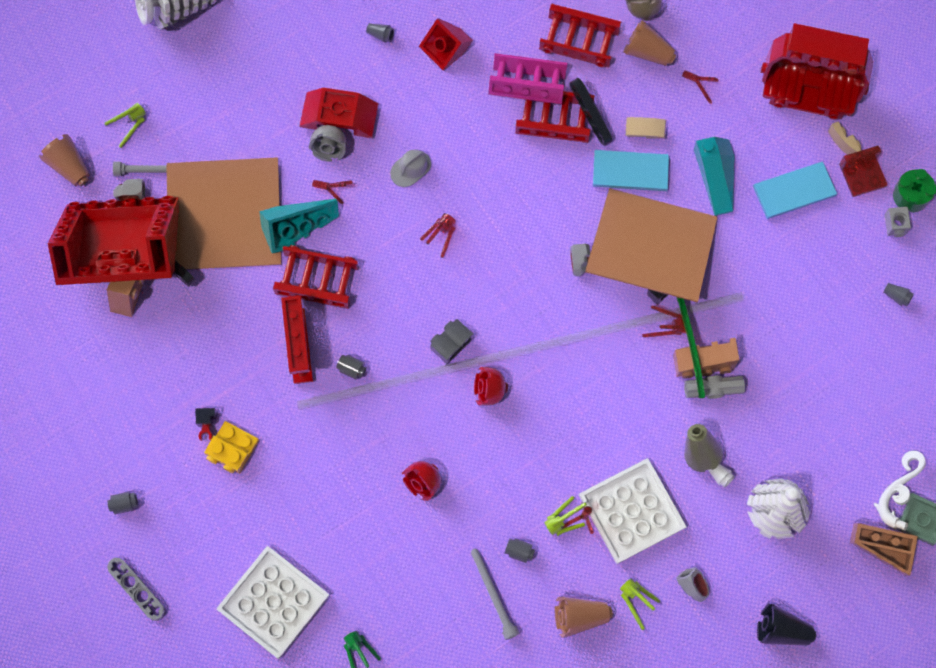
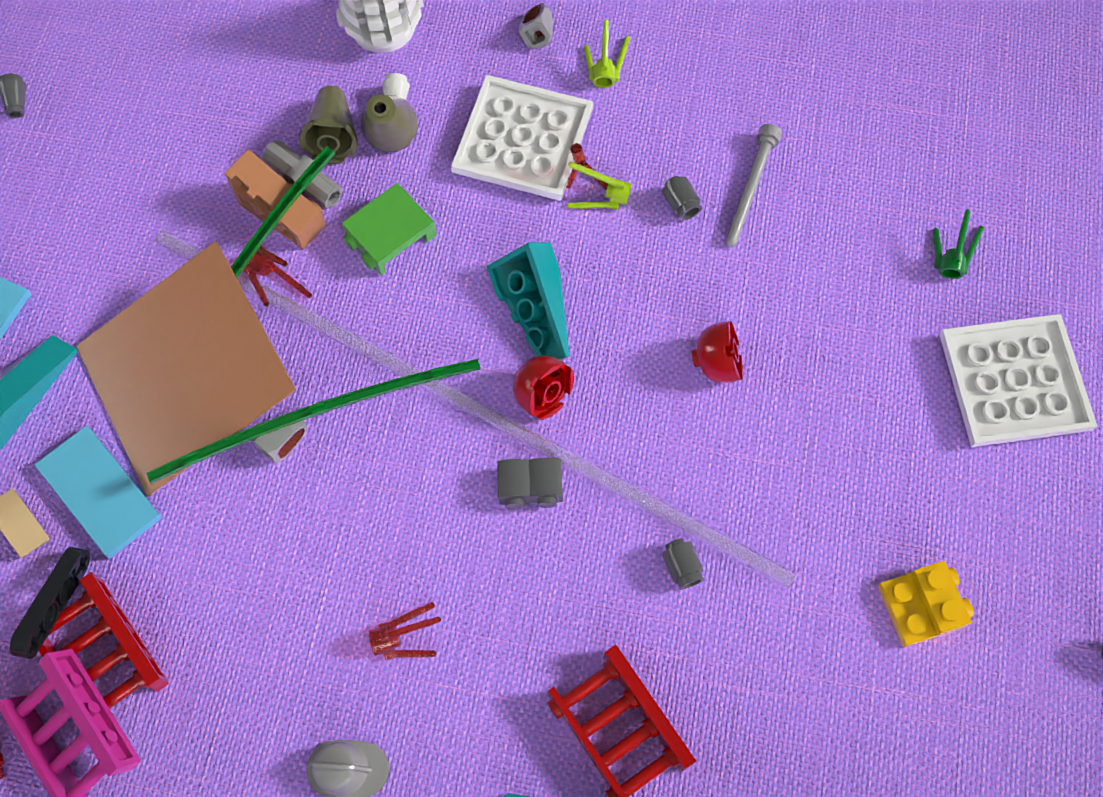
camera: 135 degrees left, 5 degrees down
(204, 419) = (933, 671): black piece -> none
(296, 339) = (730, 649): red fence -> none
(542, 433) = (533, 292): none -> teal wedge
(572, 285) = (308, 412): none -> green piece
(580, 615) = (684, 86): nougat cone -> none
(641, 397) = (387, 227): none -> bright green panel
(730, 423) = (329, 125): none -> olive cone

